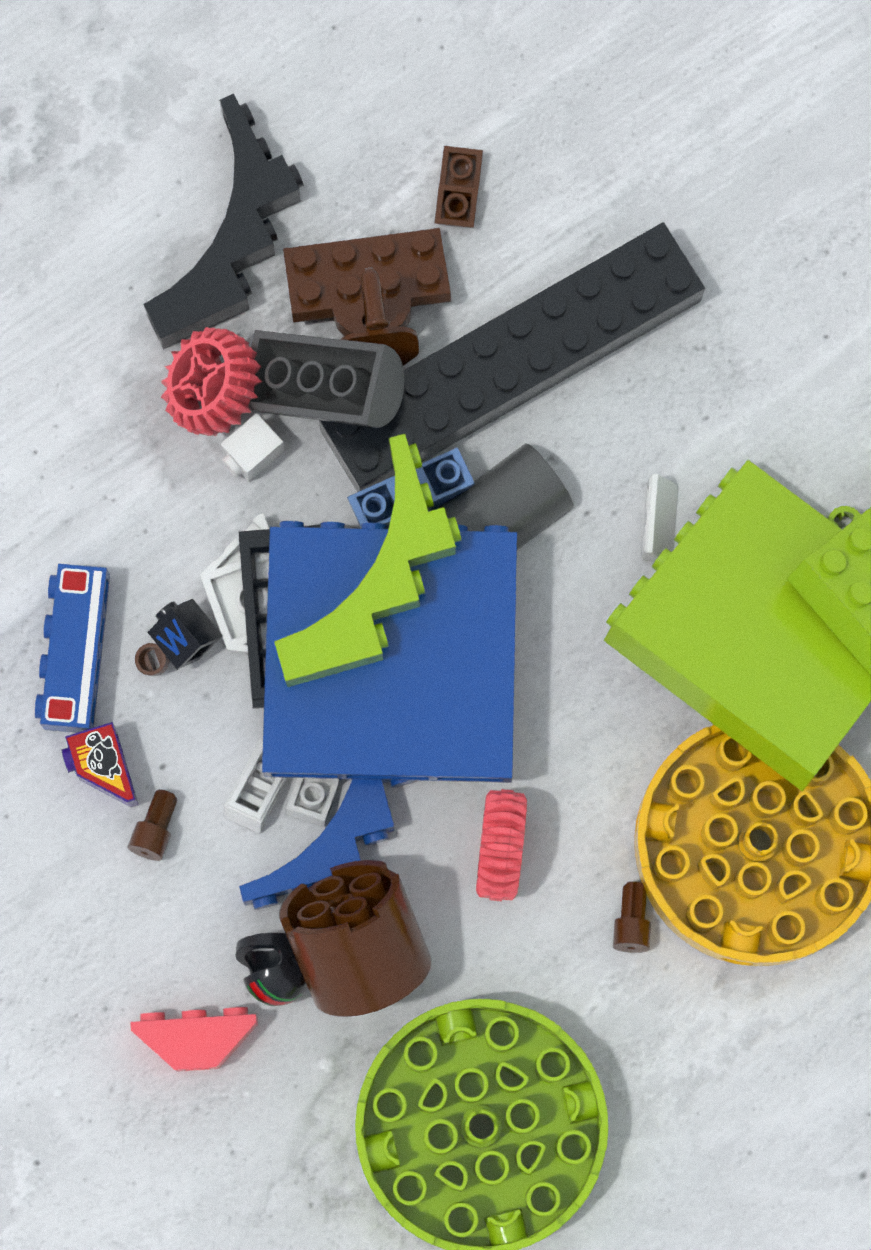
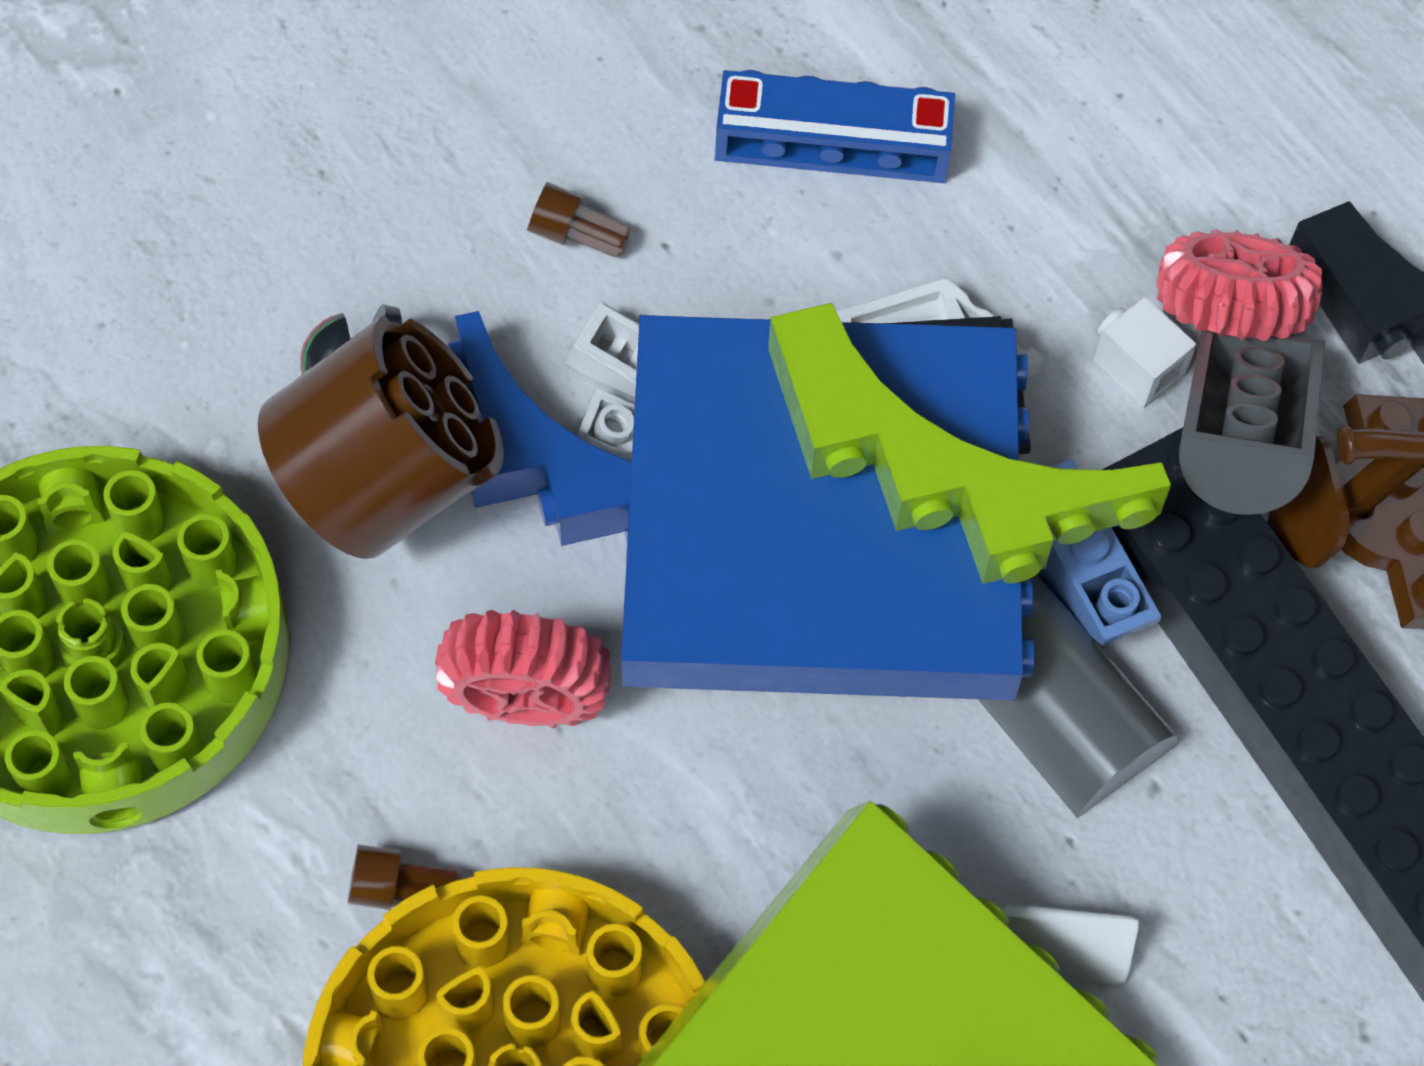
camera: 90 degrees right, 15 degrees down
(100, 762) = (668, 159): slope -> none
(145, 663) = (819, 222): reddish brown hinge -> none
(184, 632) = (858, 255): black brick -> none
(195, 1040) = (262, 265): coral slope -> none

